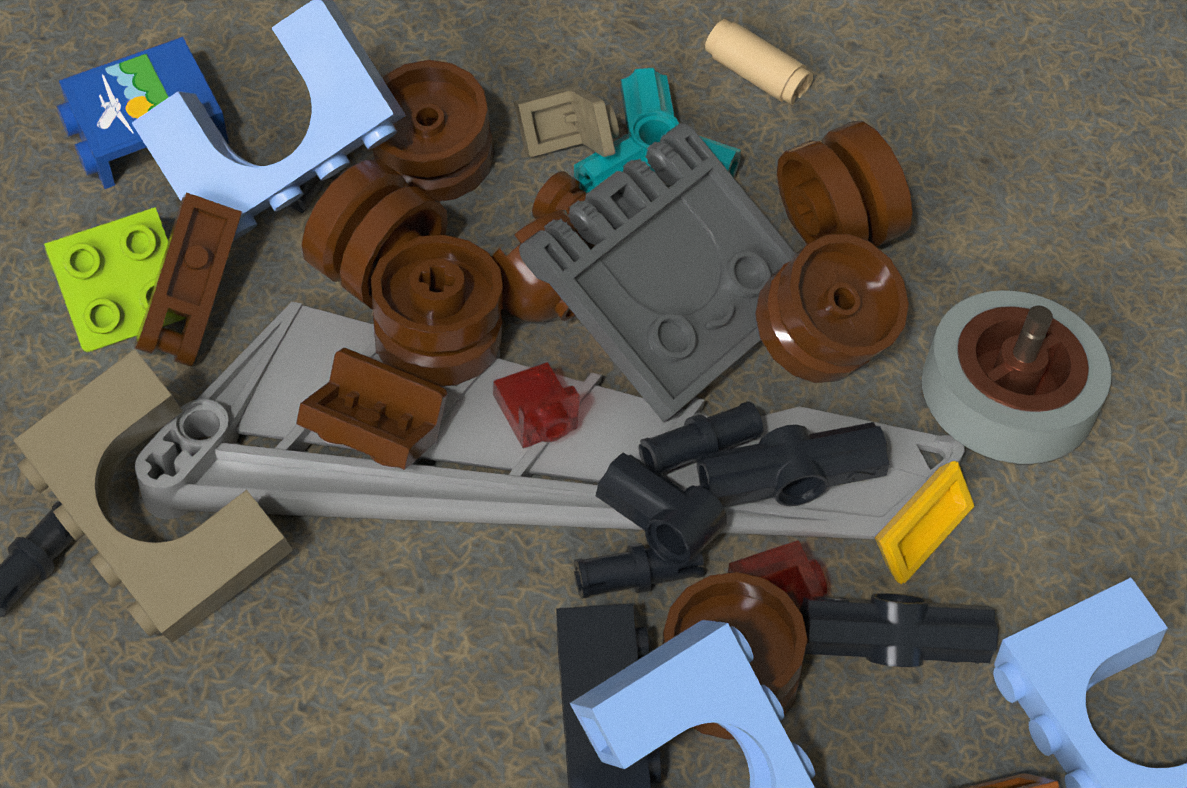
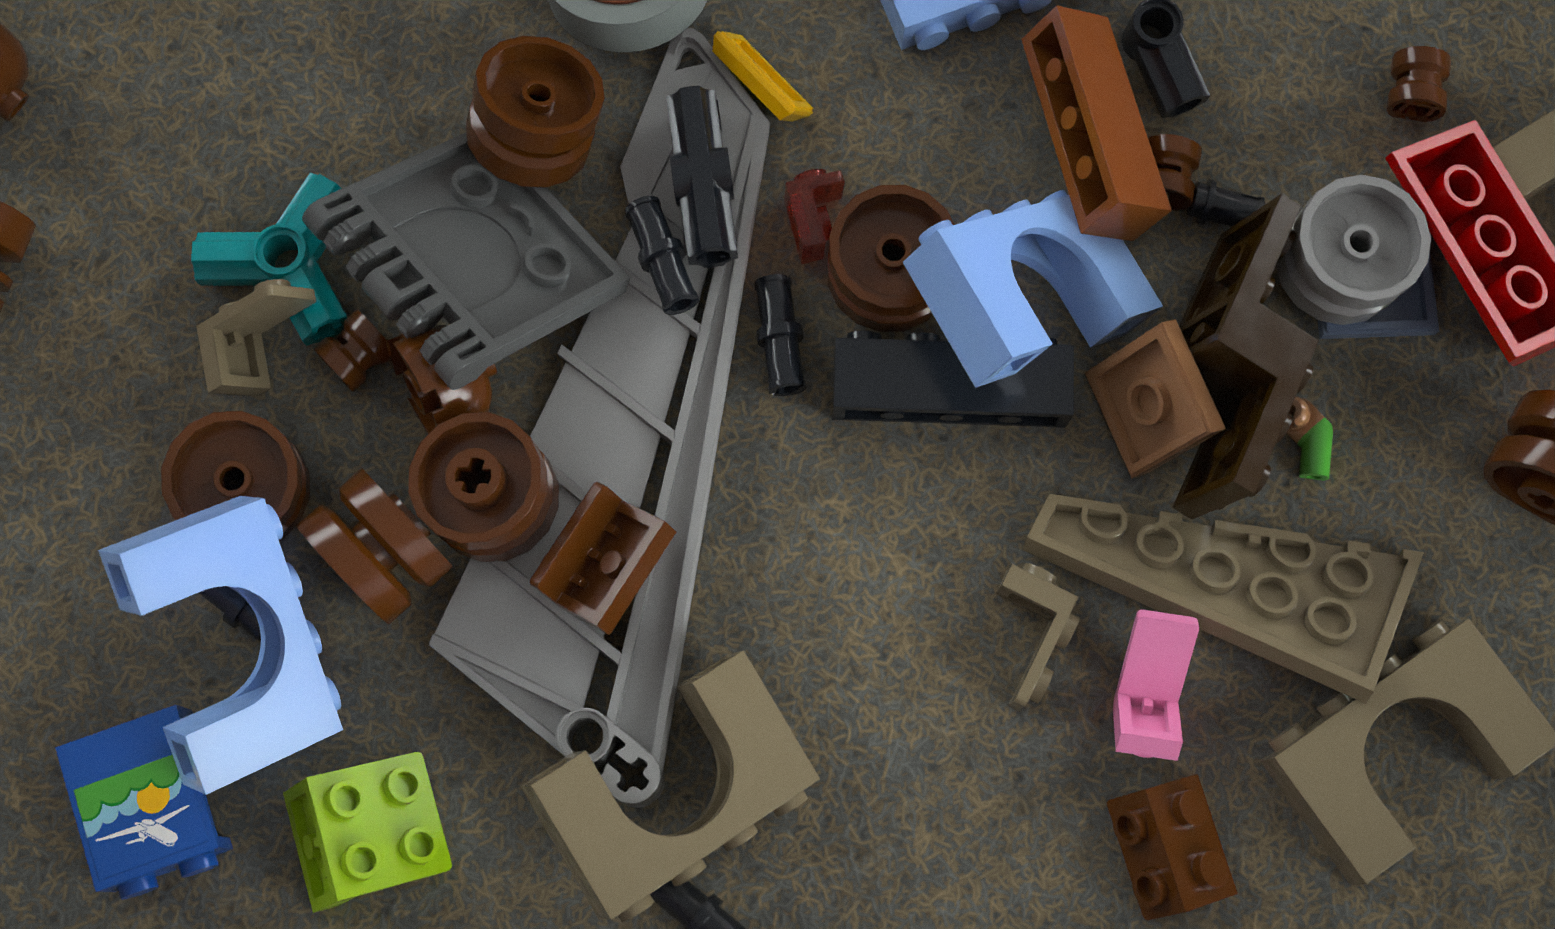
camera: 85 degrees left, 20 degrees up
(188, 277) = (397, 746): reddish brown plate -> none
(537, 405) = (601, 404): clear red bracket -> none
(673, 519) = (750, 287): black piece -> none
(758, 61) = (186, 141): tan piece -> none
(845, 186) = (395, 75): reddish brown wheel -> none
(899, 629) = (875, 113): black piece -> none

